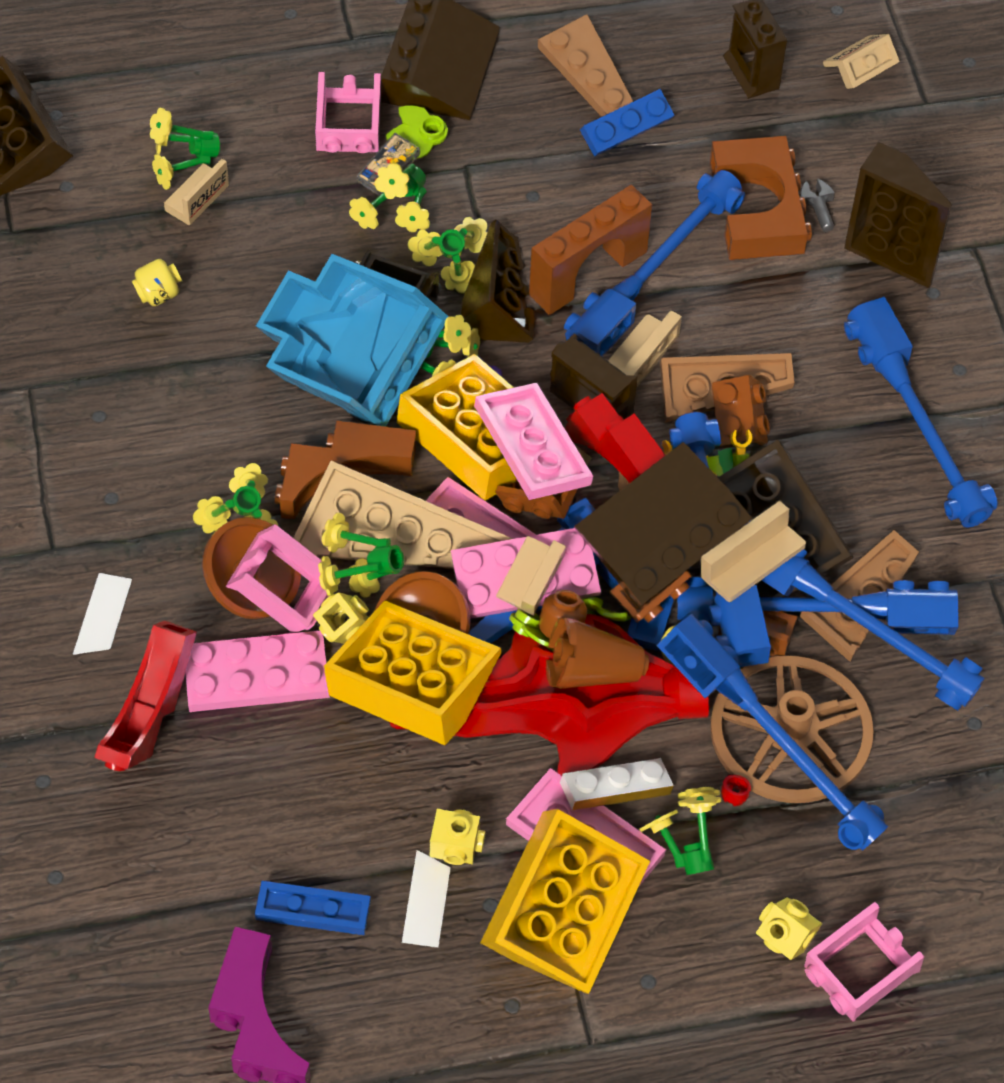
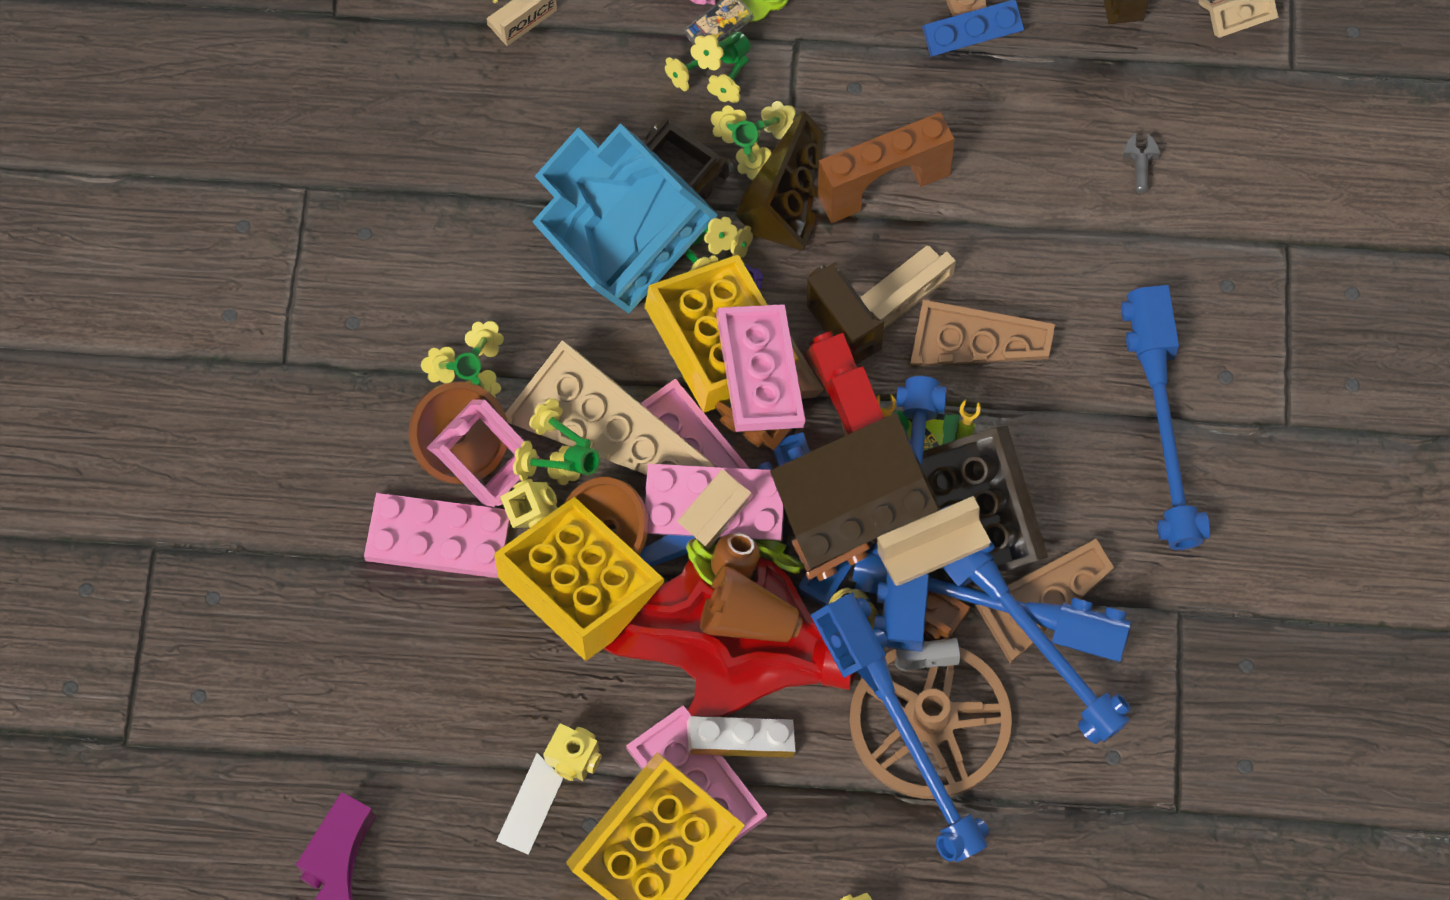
camera: 20 degrees right, 10 degrees up
(103, 614) = (312, 441): white sticker -> none
(150, 698) = (328, 543): red arch -> none
(156, 282) = (454, 105): light yellow head -> none
(313, 907) = (422, 788): blue plate -> none
(353, 445) = (589, 330): dark orange arch -> none
(614, 311) = (891, 236): blue bar -> none
(697, 855) = (796, 828): plant -> none
(735, 782) = (847, 767): red hinge -> none
(740, 408) = (984, 376): dark orange bracket -> none
(769, 164) = (1092, 182): dark orange arch -> none
(780, 665) = (934, 654): none -> light grey bar
(897, 216) = (1201, 202): dark brown slope -> none

